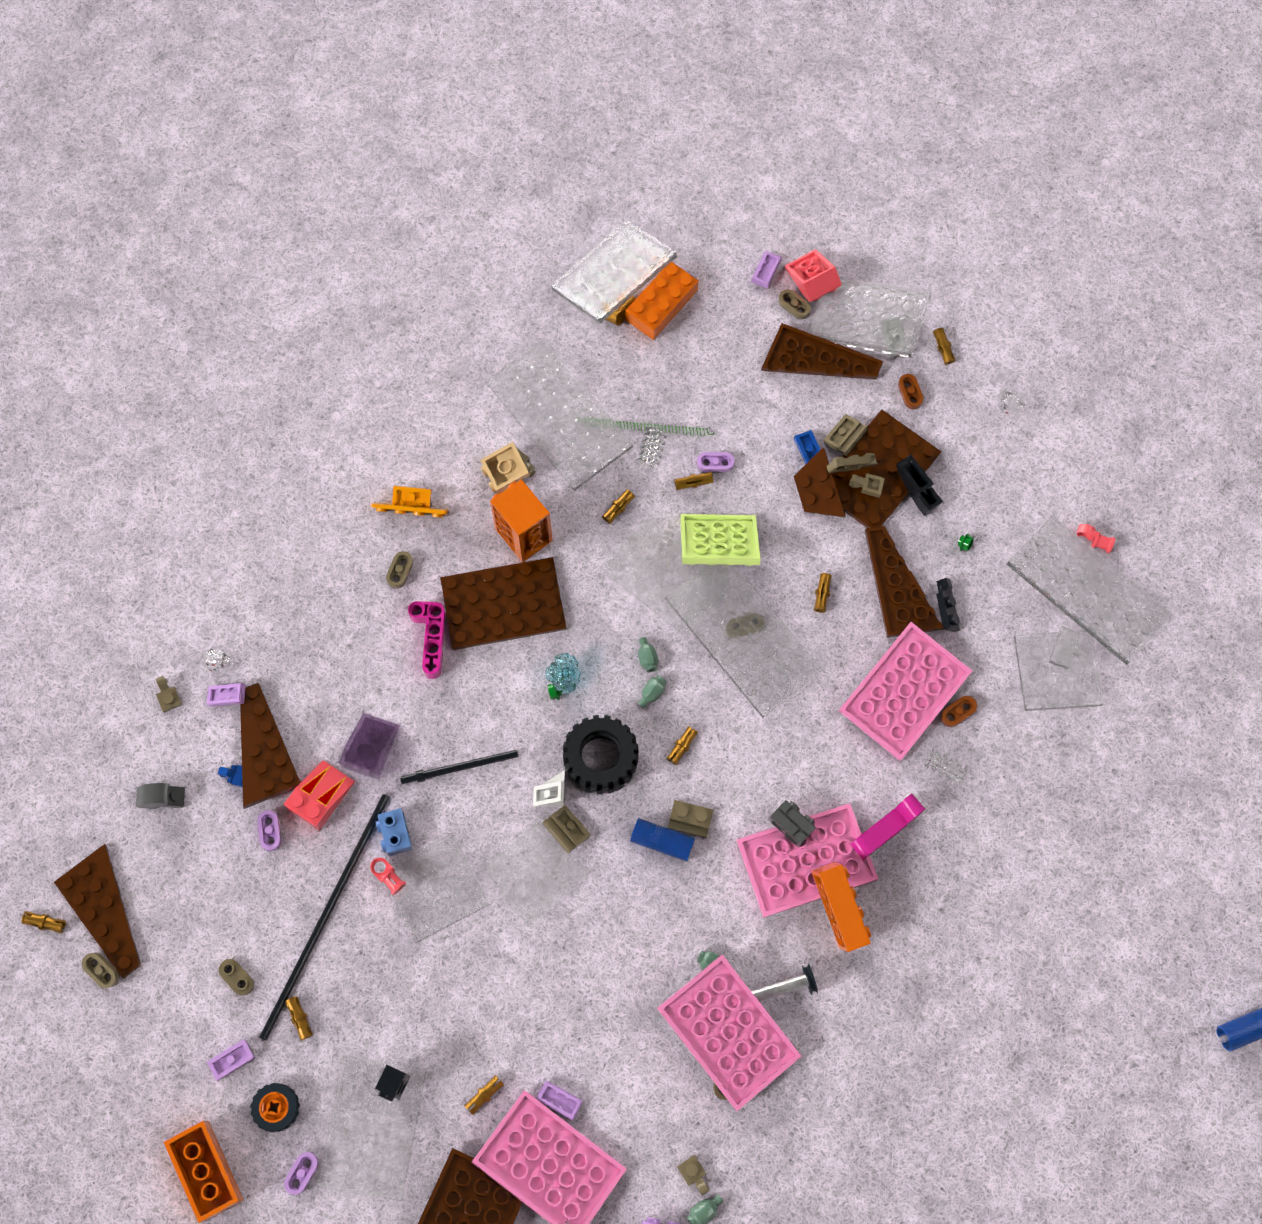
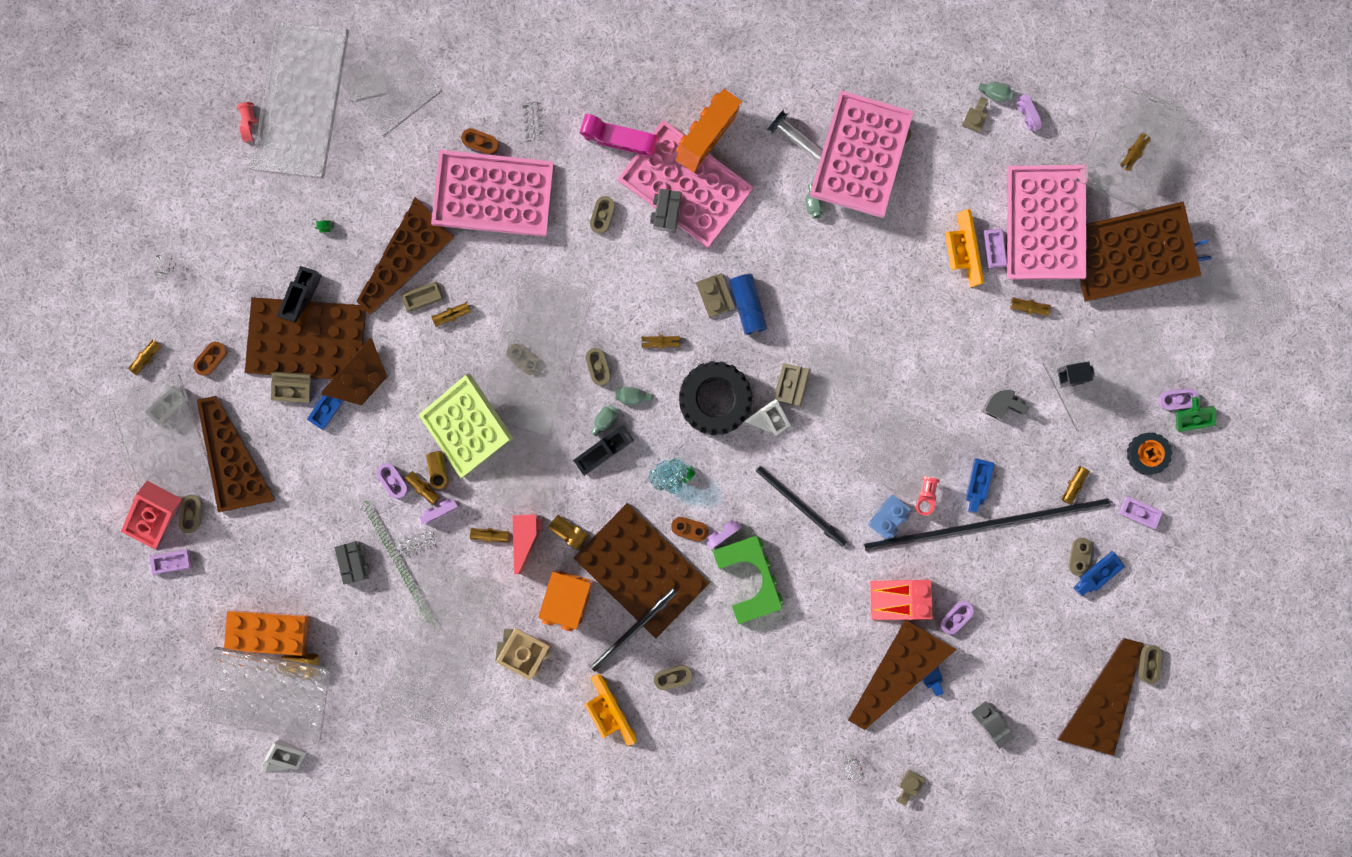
camera: 125 degrees left, 15 degrees up
(43, 922) = (1147, 738): pearl gold pin -> none
(203, 1171) = (1230, 469): orange brick -> none
(208, 982) = (1099, 574): none -> blue hinge
(226, 694) = (876, 737): lavender plate -> none
(273, 1176) = (1195, 417): none -> green plate
(365, 932) = (979, 483): none -> blue hinge
(369, 746) = (835, 589): clear purple slope -> none
(420, 1004) = (999, 403): none -> dark grey brick
(432, 622) = (715, 606): dark pink beam -> none
(452, 697) = (767, 599): none -> bright green arch
(463, 595) = (660, 604): none -> black bar
(483, 678) = (716, 538): none -> lavender plate
(509, 664) = (689, 529): none -> dark orange plate
(560, 256) = (282, 757): none -> white slope
(571, 568) = (571, 534): none -> pearl gold piece
(578, 1068) = (963, 248): none -> light orange bracket
(597, 527) = (525, 534): none -> coral slope
(622, 638) = (603, 450): none -> black slope
(665, 488) = (431, 514): none -> lavender plate
(671, 392) = (352, 562): none -> dark grey brick
(697, 677) = (598, 367): none -> dark tan plate
(700, 501) = (437, 468): none -> pearl gold piece
(828, 769) = (601, 215): none -> dark tan plate
(852, 463) = (315, 359): dark tan hinge -> none
(853, 580) = (422, 296): none -> dark tan tile
(870, 485) = (326, 334): dark tan plate -> none
(946, 605) = (393, 206): black hinge -> none

